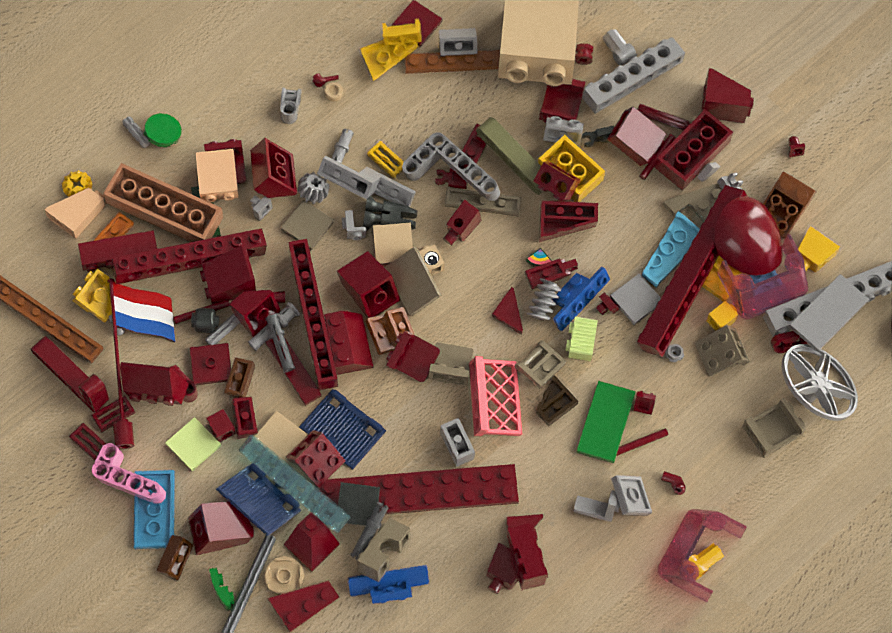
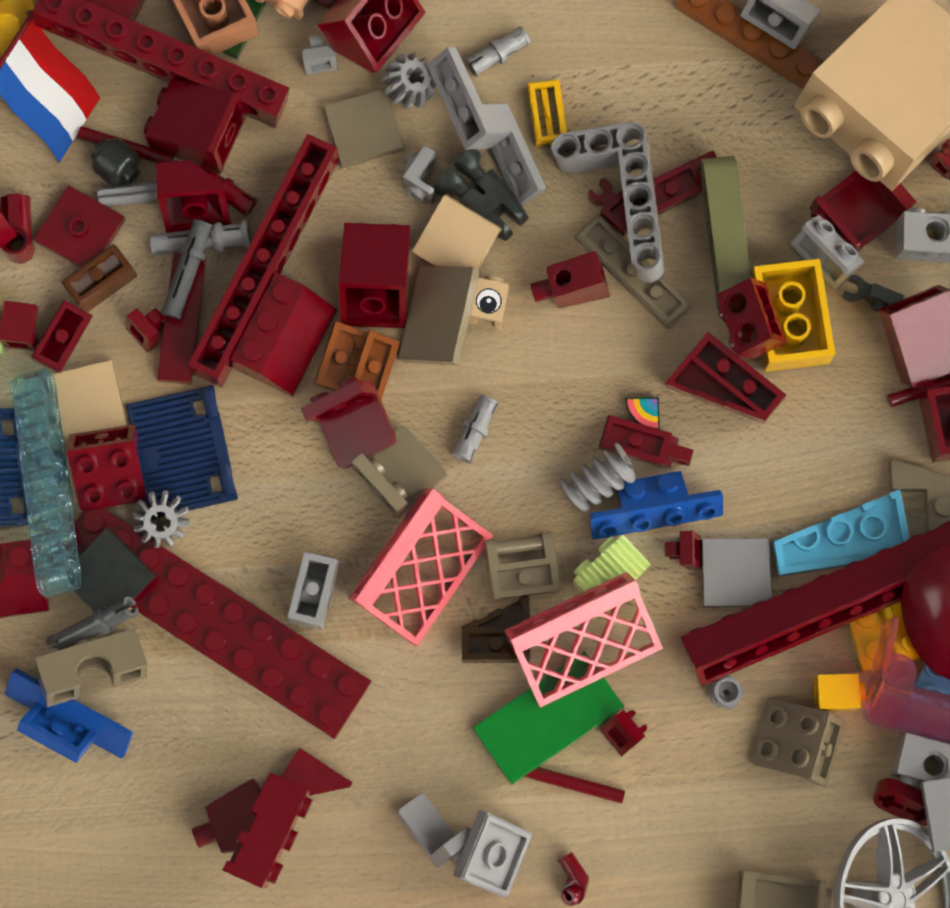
camera: 40 degrees right, 10 degrees up
(280, 385) = (145, 328): none -> dark red tile
(357, 455) = (150, 524): none -> light grey gear
(470, 320) = (475, 429): none -> light grey pin
(508, 312) = (539, 456): dark red tile -> none
(580, 368) = (580, 611): none -> coral fence

